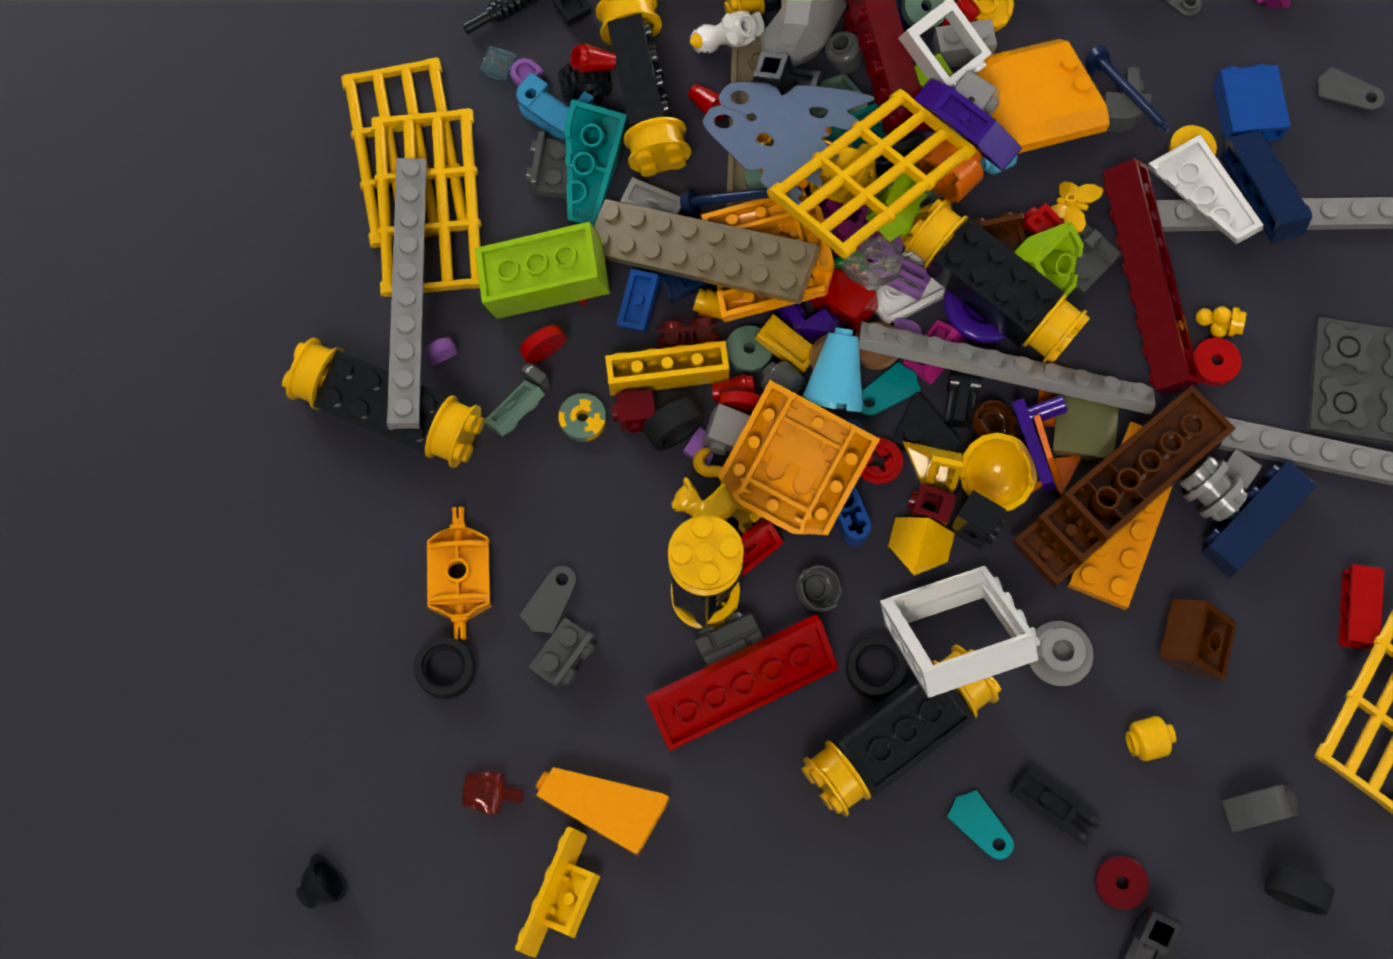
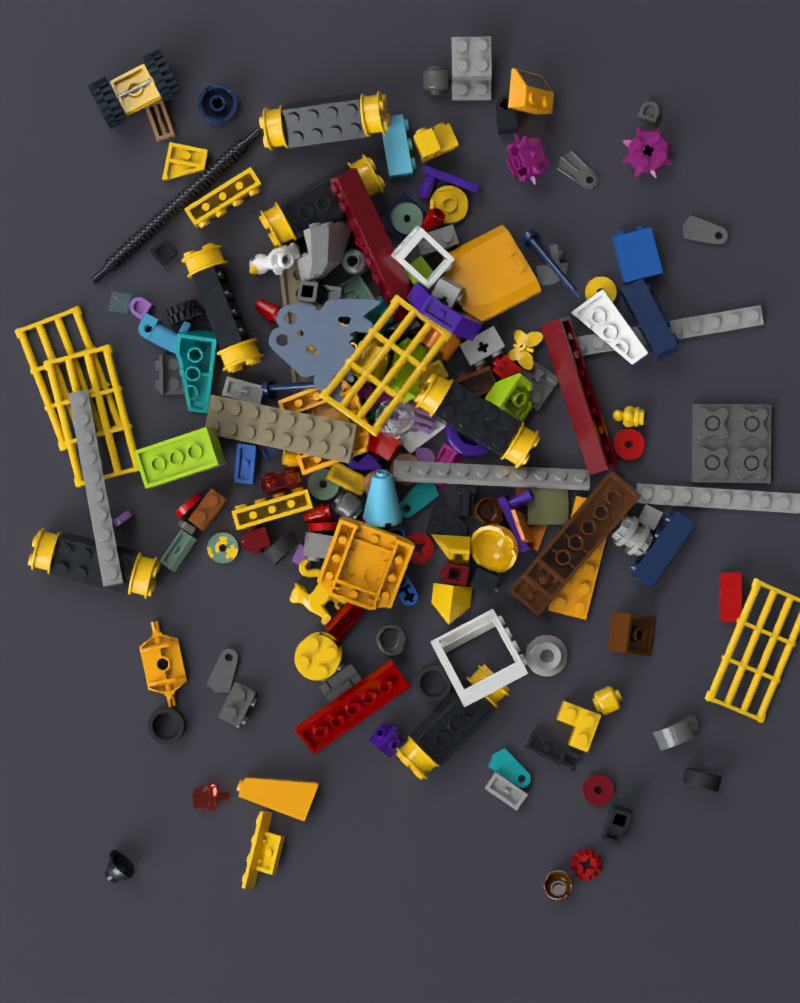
camera: 10 degrees left, 15 degrees up
(570, 355) = (207, 509): none -> dark orange brick
(590, 58) = (186, 306): red cone -> none
(790, 742) = (387, 739): none -> dark purple brick
(971, 860) = (506, 791): none -> light grey plate
(1012, 191) = (488, 337): none -> light grey brick
(1110, 766) = (584, 723): none -> yellow brick

